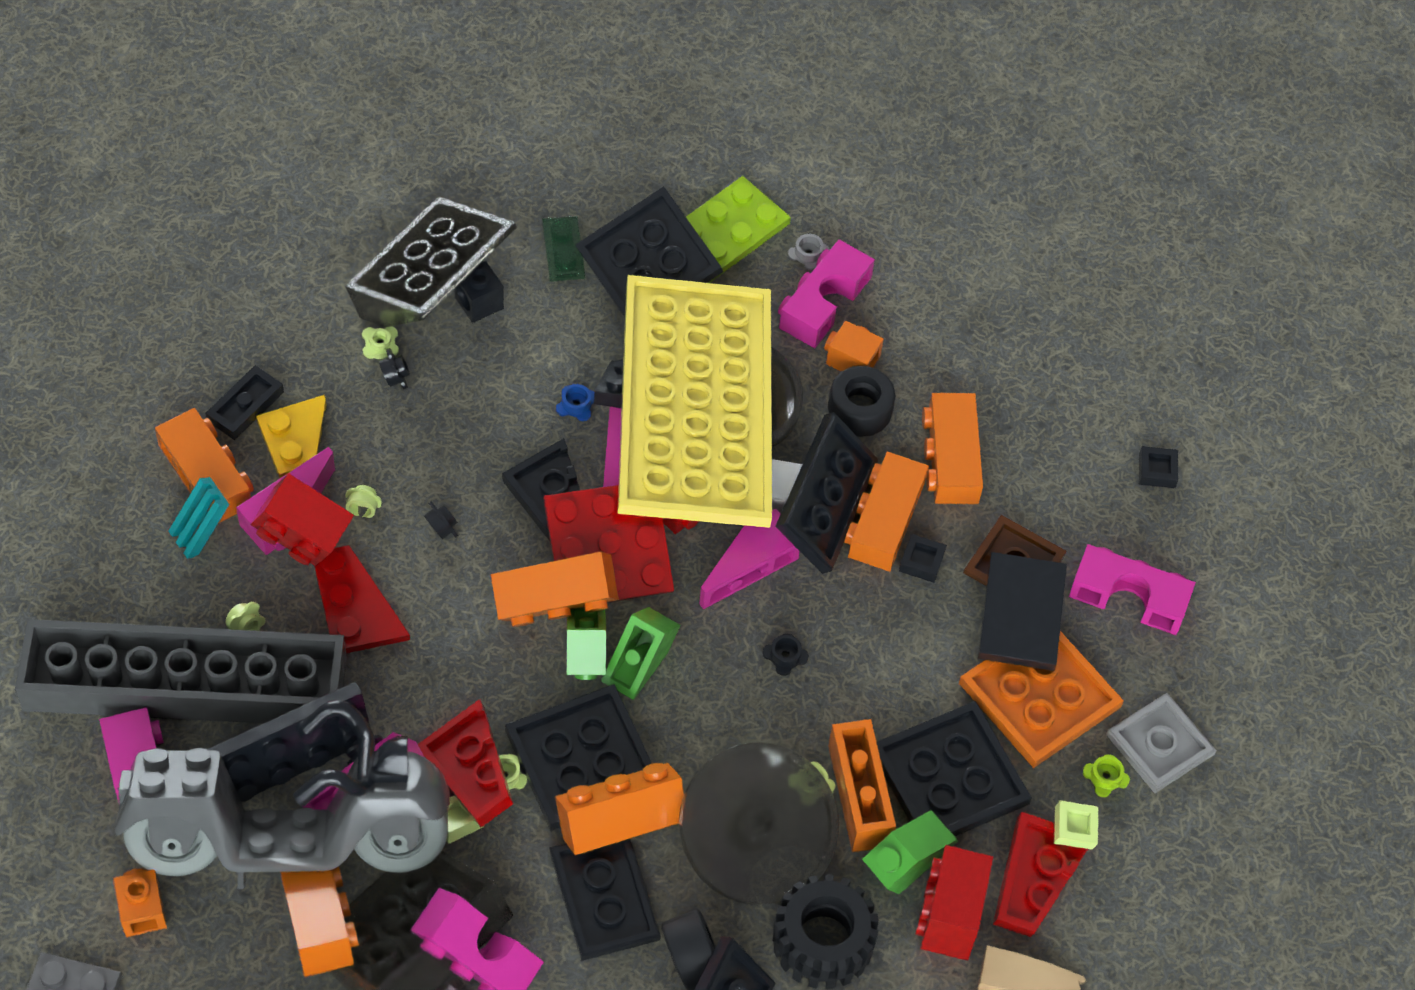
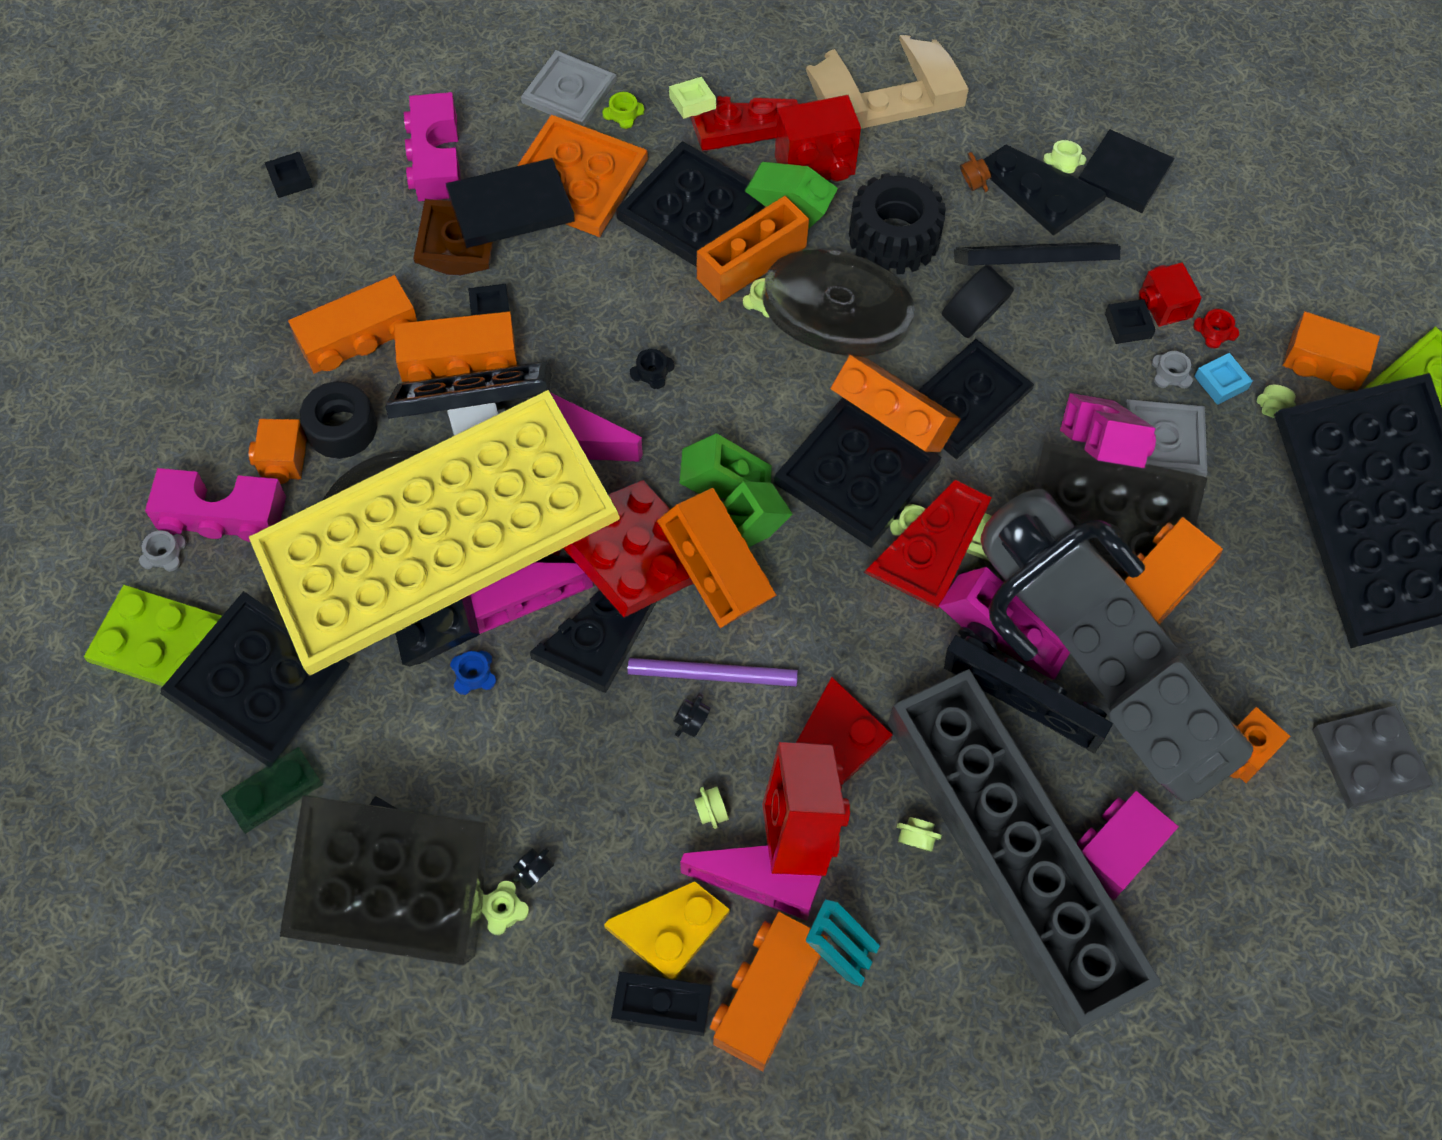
camera: 115 degrees left, 5 degrees up
(471, 560) = (712, 672): none -> medium lavender bar

